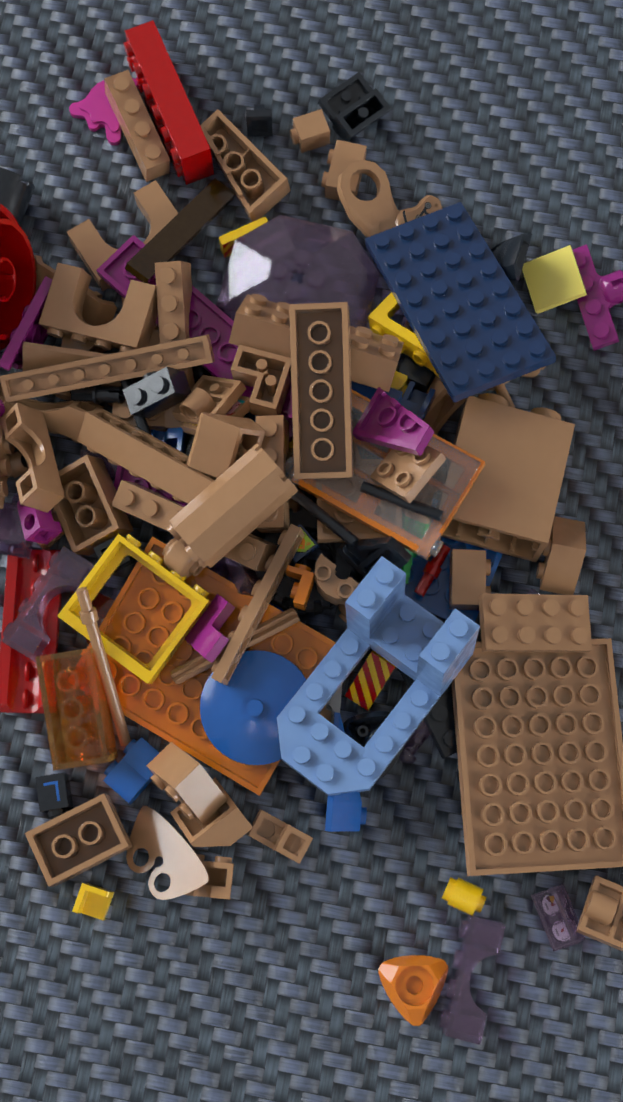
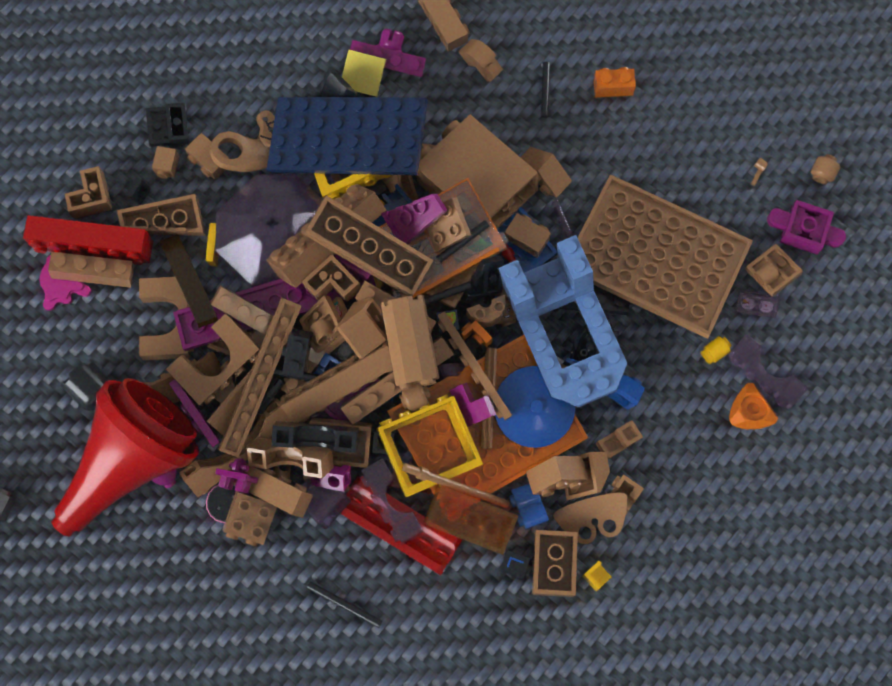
camera: 60 degrees left, 0 degrees up
(80, 493) = (303, 434): none -> black arch
(223, 79) = (92, 198): none -> medium nougat brick
(370, 680) = (555, 329): tile -> none
(534, 623) = (578, 209): medium nougat plate -> none

